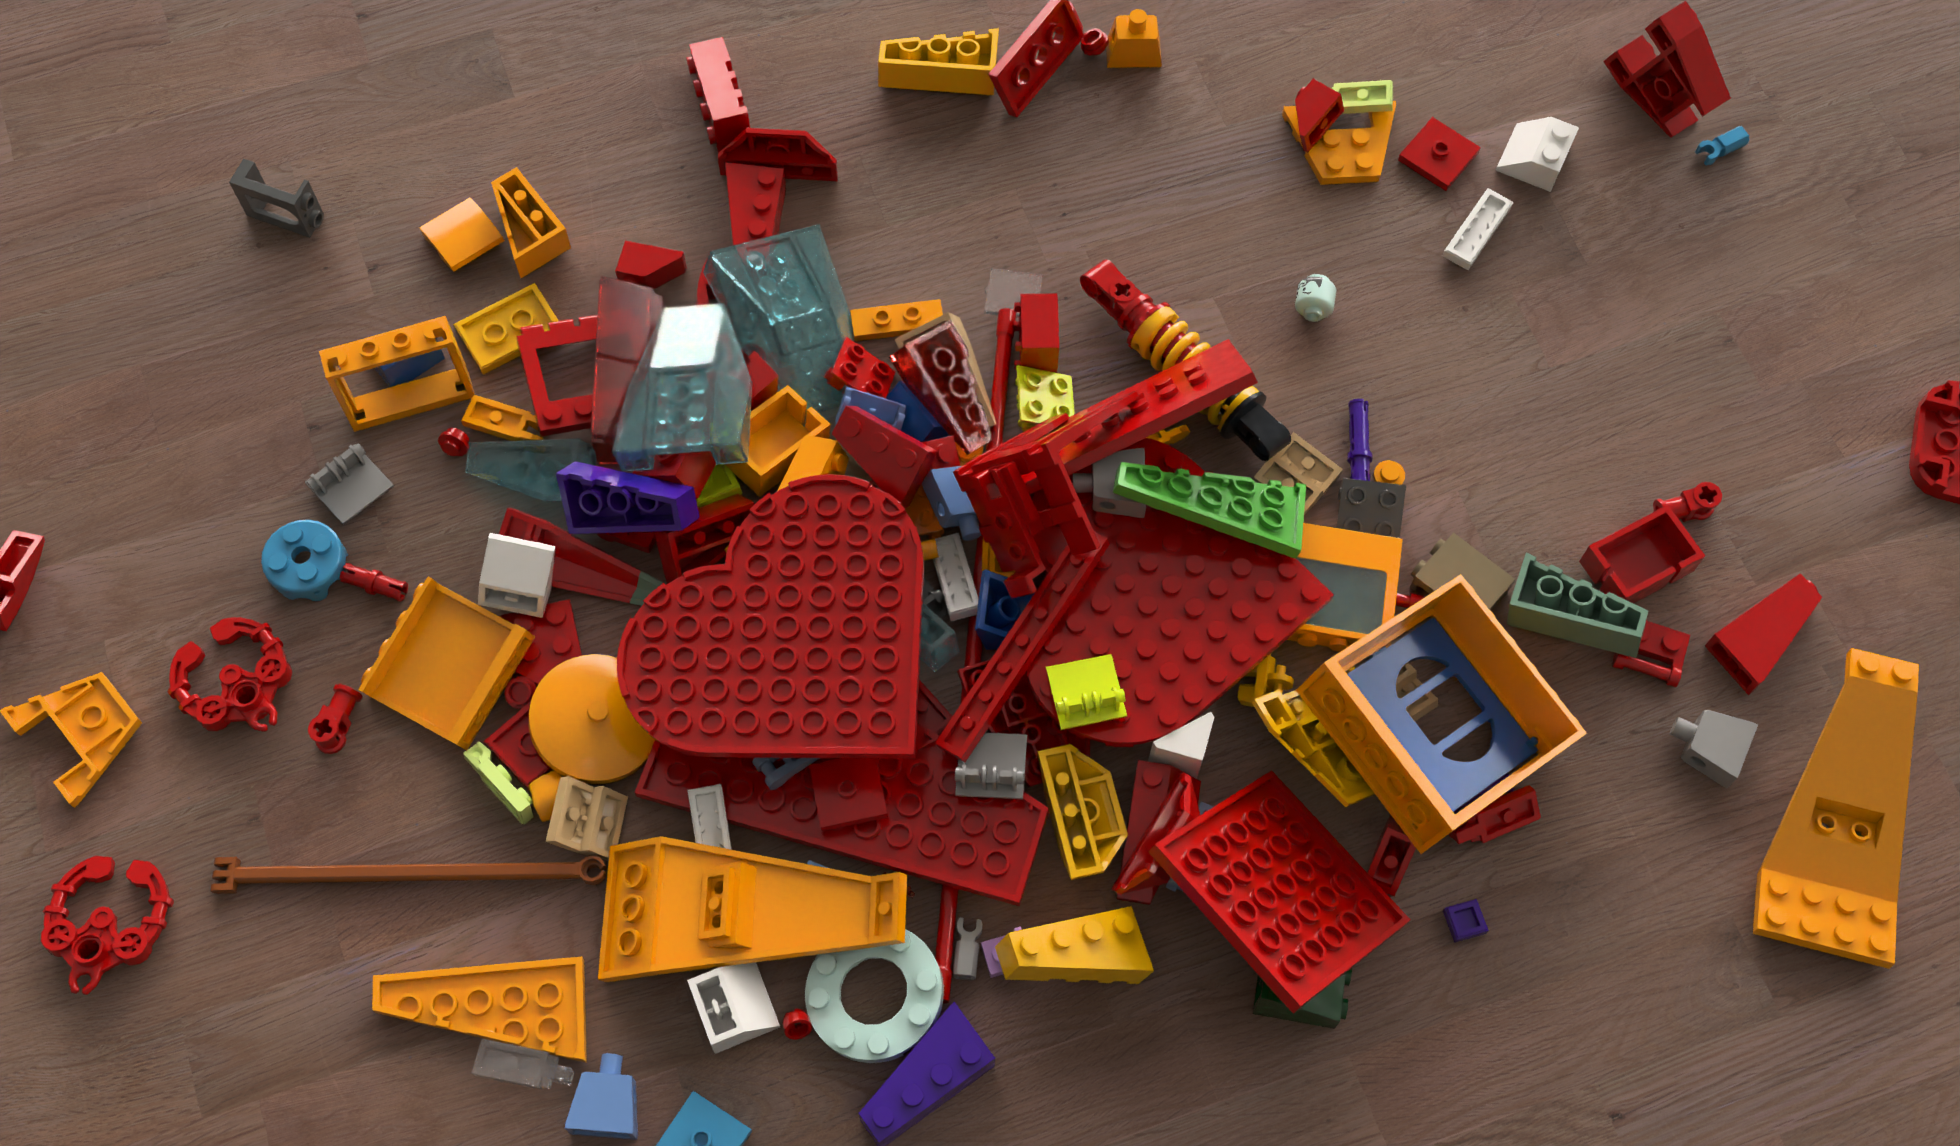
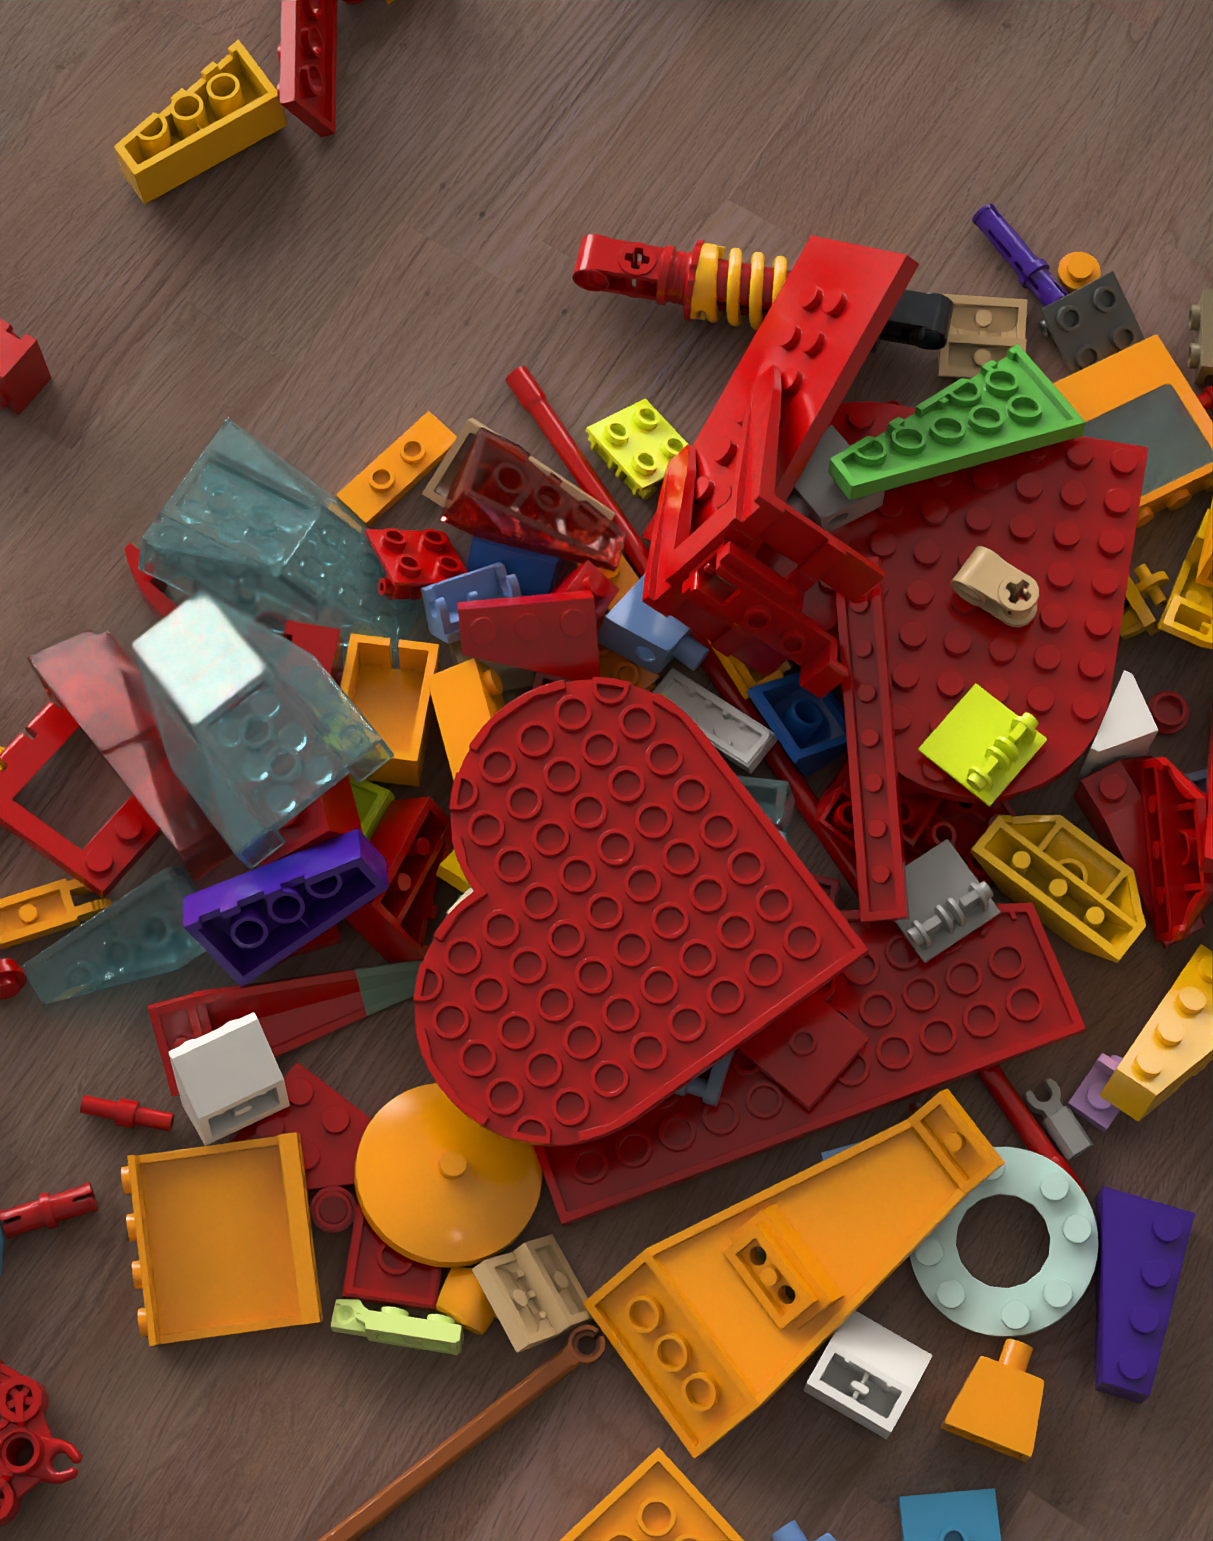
camera: 35 degrees left, 5 degrees up
(334, 720) = (144, 1398): red connector -> none
(458, 560) = (127, 1113): none -> red bar
(649, 264) = (56, 606): red slope -> none
(709, 816) = (675, 1188): white plate -> none
(754, 200) = (121, 449): red wedge -> none
(787, 149) = (101, 366): red wedge -> none
(794, 1081) = (999, 1403): none -> light orange torso
(799, 1031) = (948, 1339): red hinge -> none
(1006, 287) = (502, 345): clear piece -> none
(1037, 331) = (581, 374): red container -> none
(1168, 606) = (992, 583): none -> tan piece
(1230, 763) = (1169, 712): none -> red plate
(1315, 297) = (845, 122): light aqua head -> none

